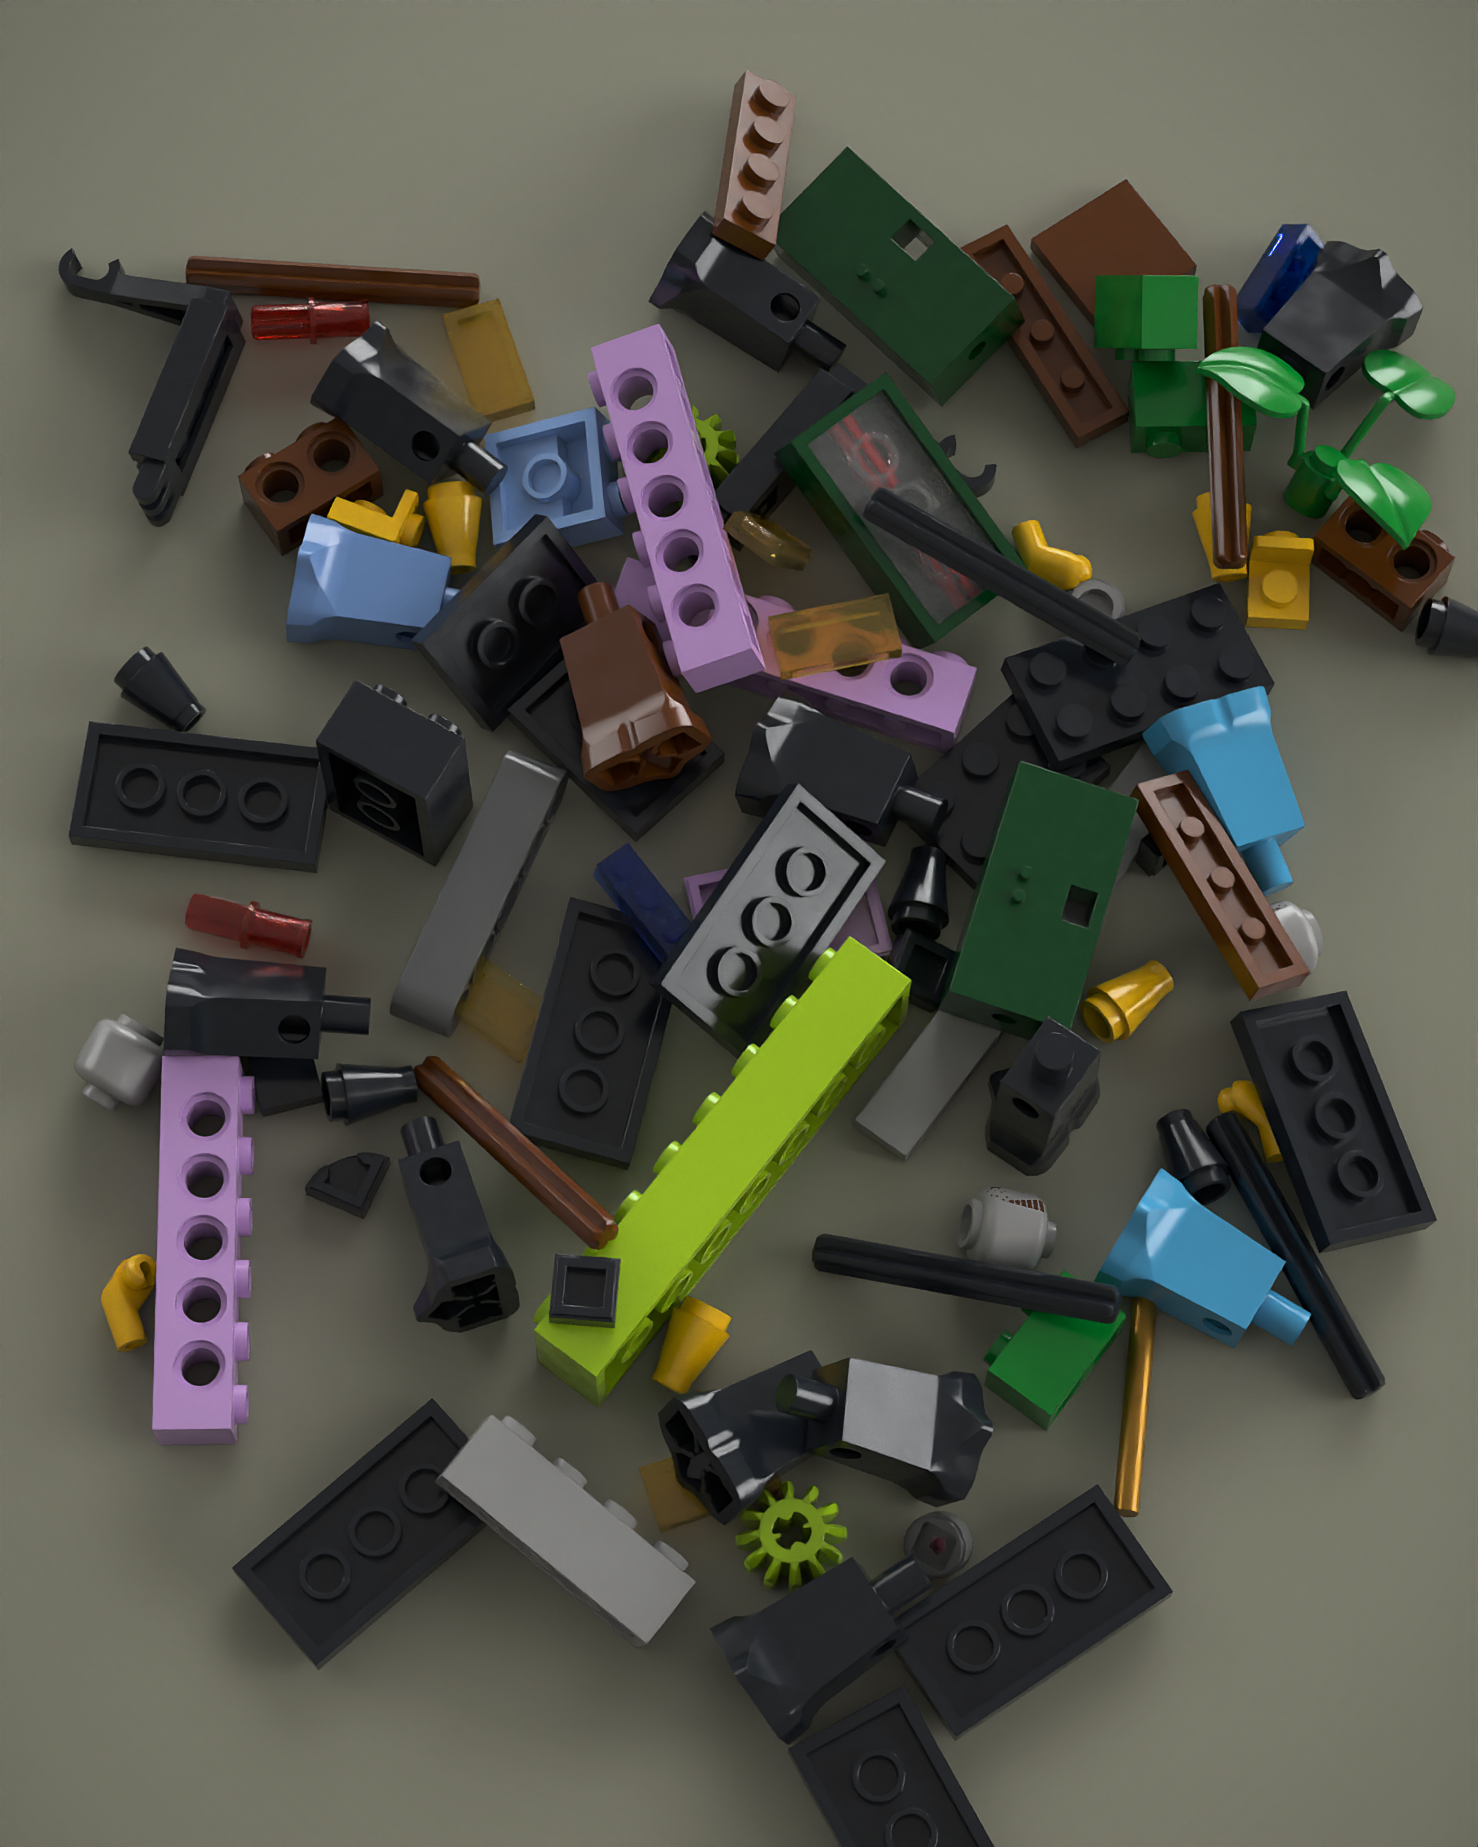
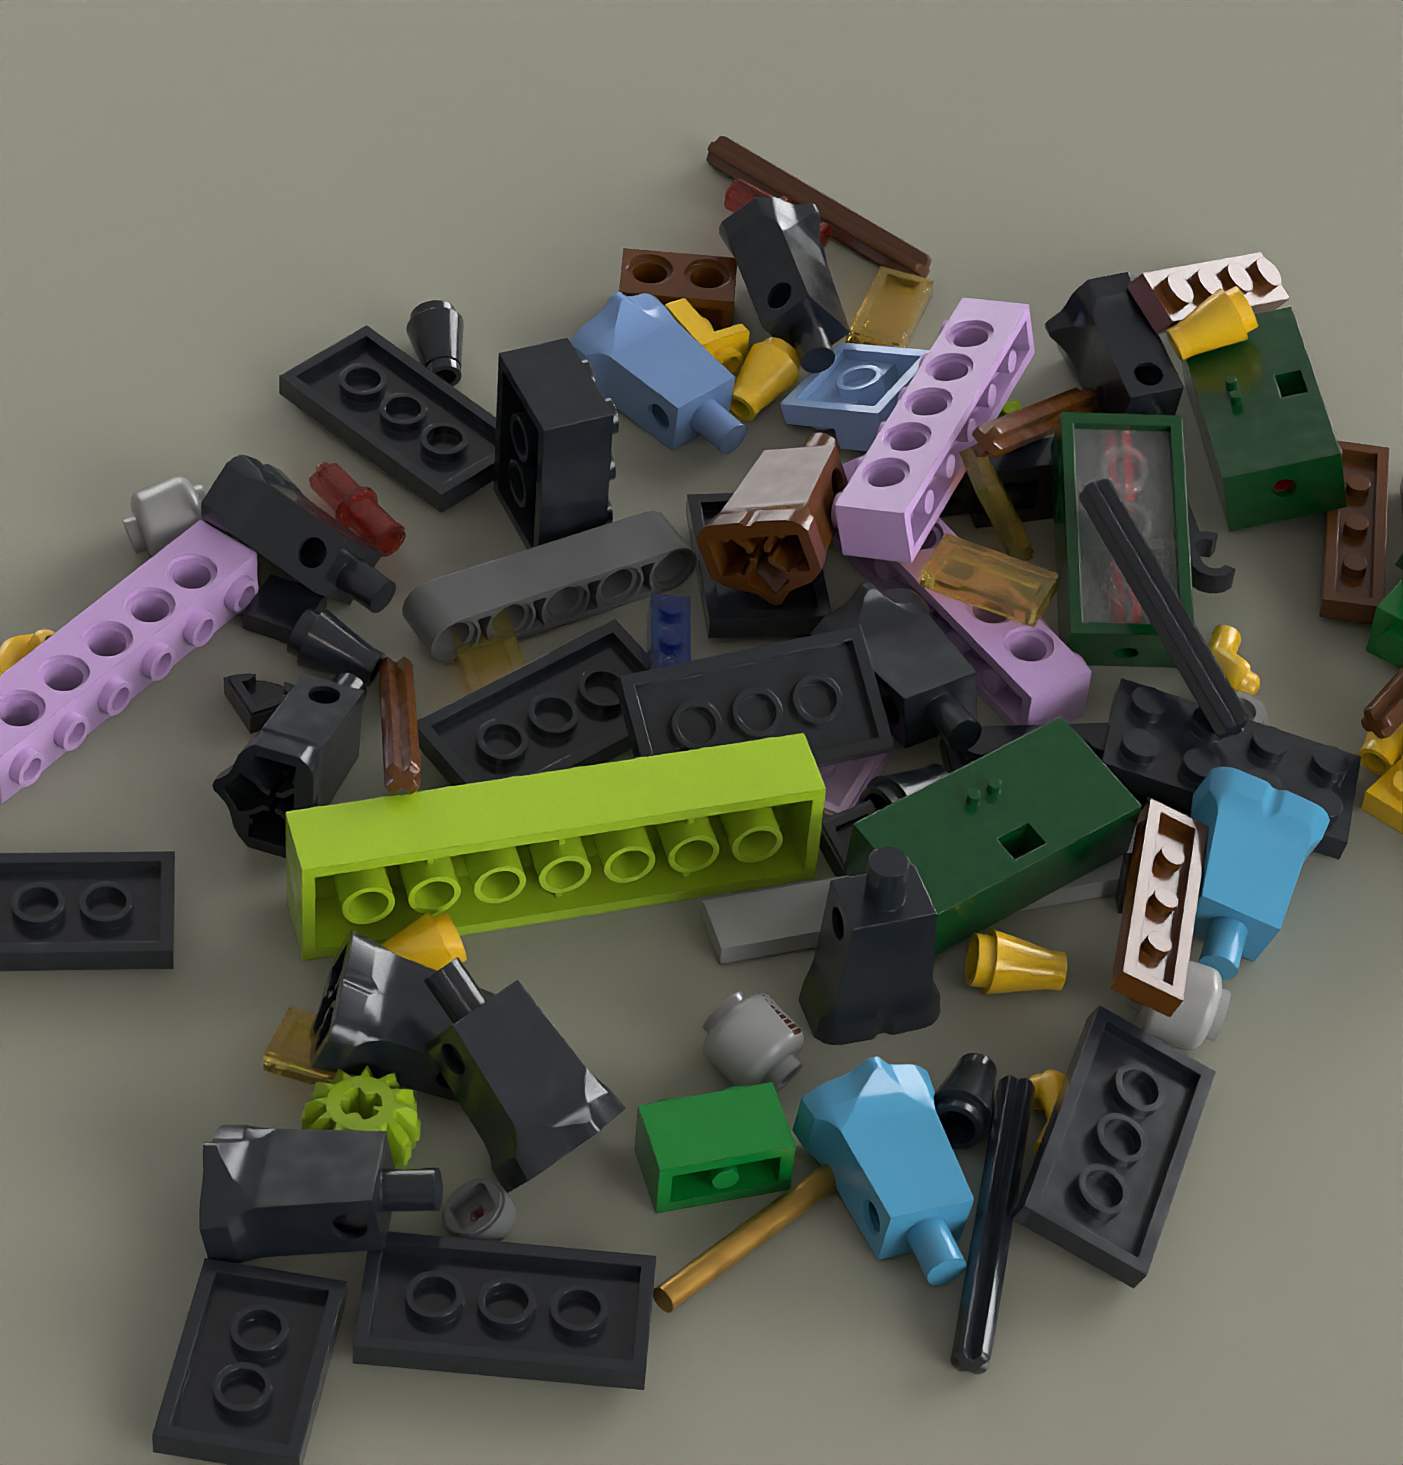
camera: 35 degrees right, 25 degrees down
(189, 383) = (637, 195): black hinge -> none
(508, 622) = (718, 431): black plate -> none
(566, 1530) = (182, 989): light grey brick -> none
(584, 1290) = (350, 807): black tile -> none
(741, 434) = (1031, 422): none -> reddish brown axle
(807, 221) = (1213, 324): none -> yellow cone
(967, 1278) = (686, 1039): black axle -> none

